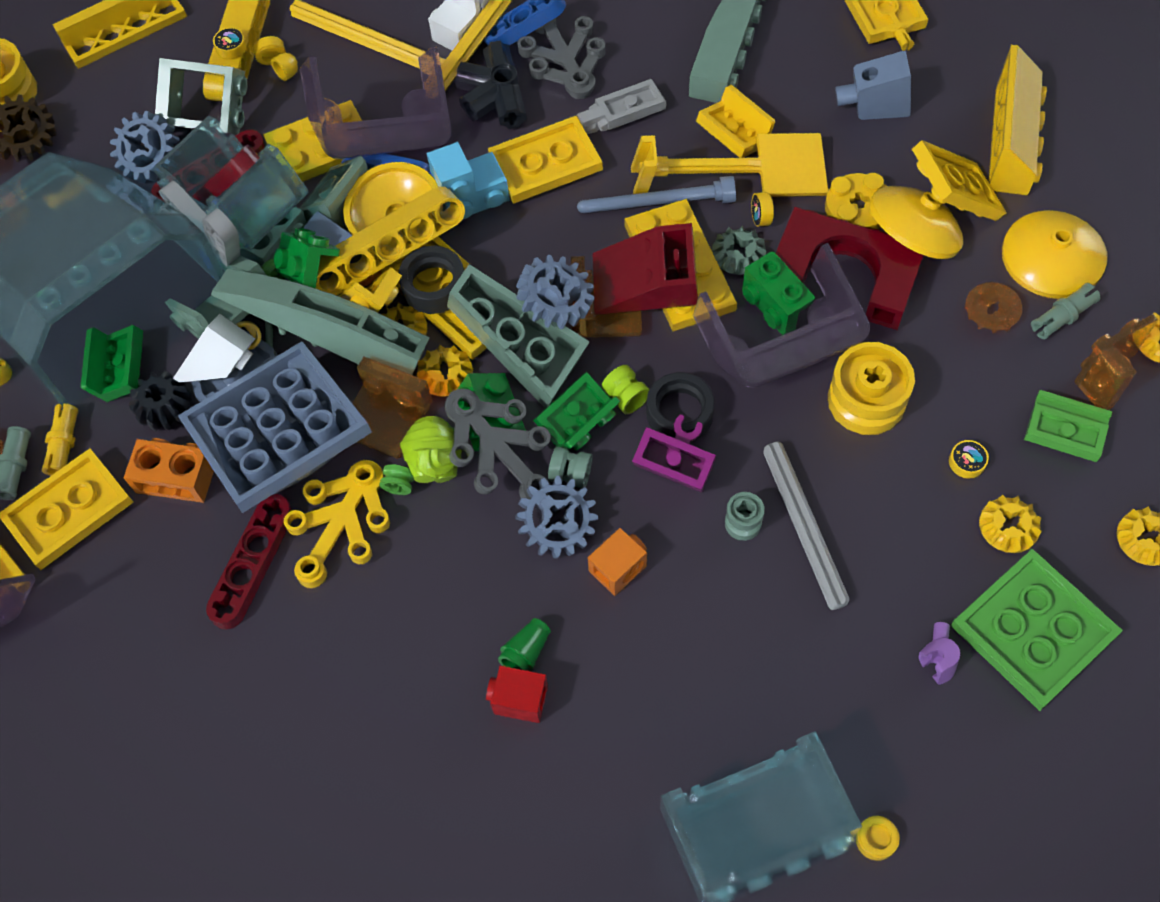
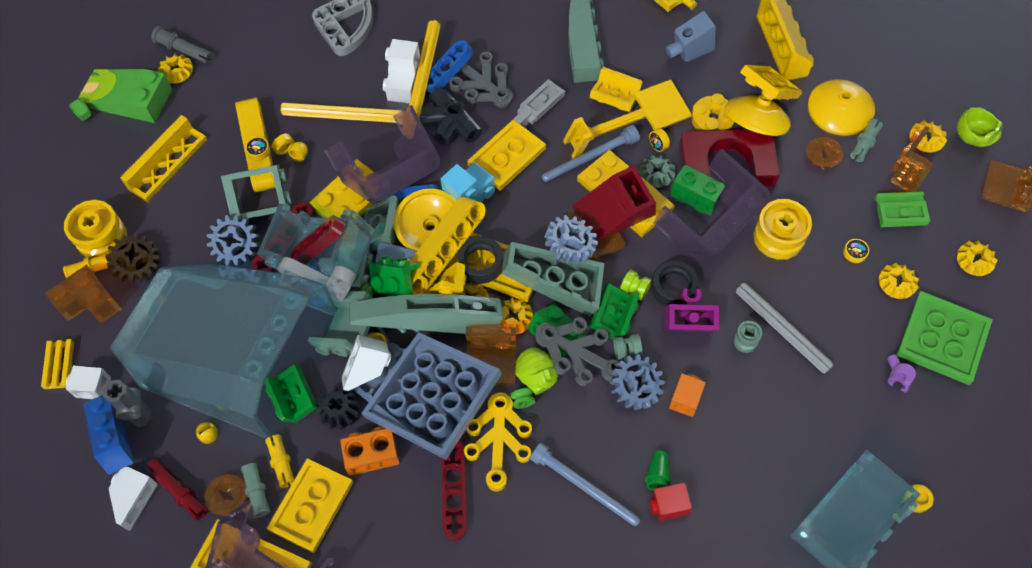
camera: 25 degrees left, 0 degrees up
(384, 564) = (543, 456): none -> sand blue piece

